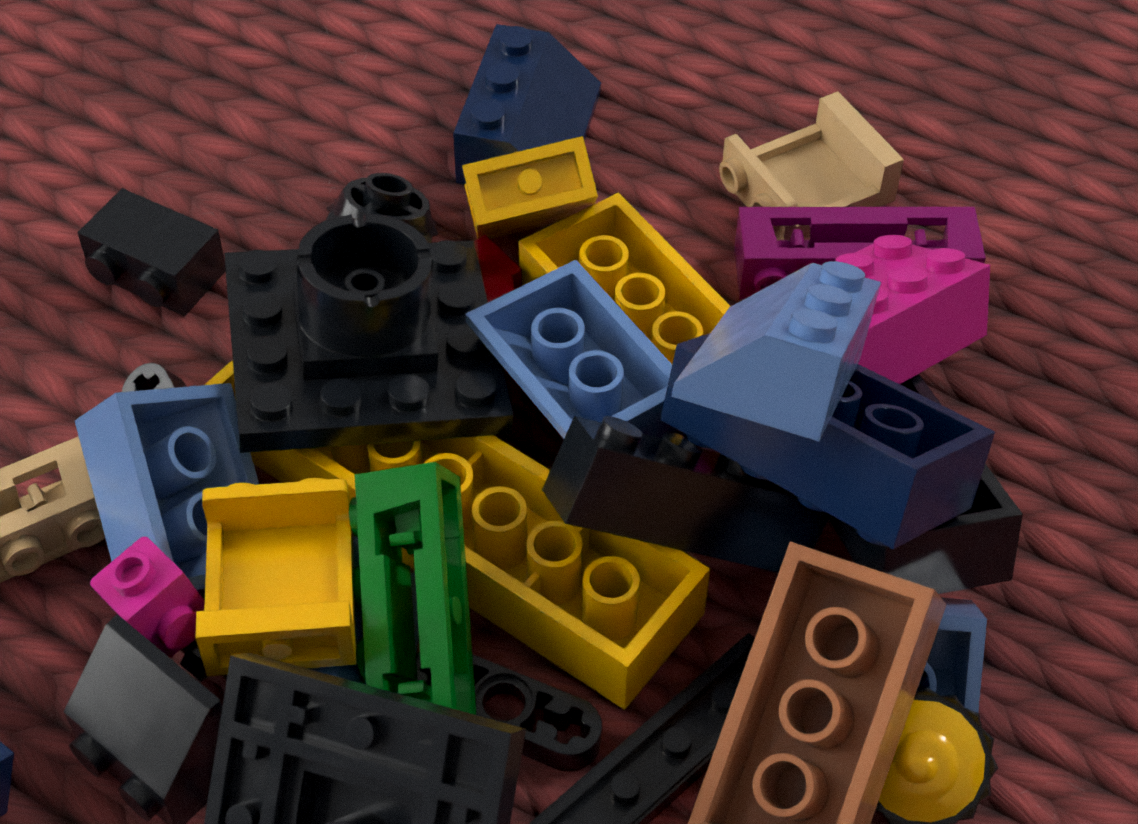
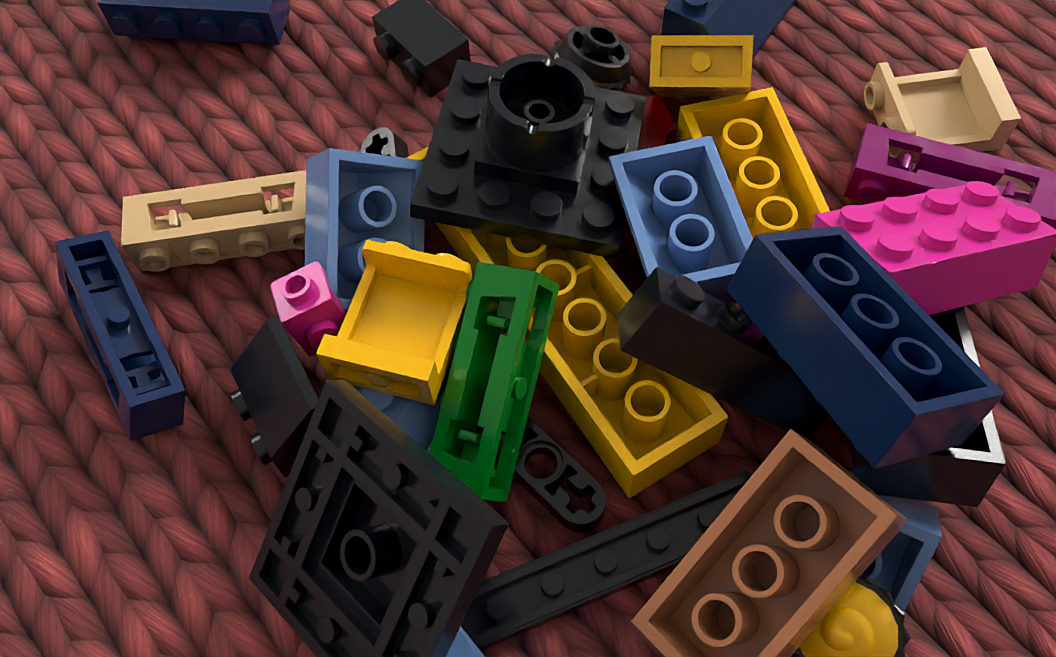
camera: 25 degrees right, 10 degrees up
(785, 350) = (842, 270): medium blue slope -> none

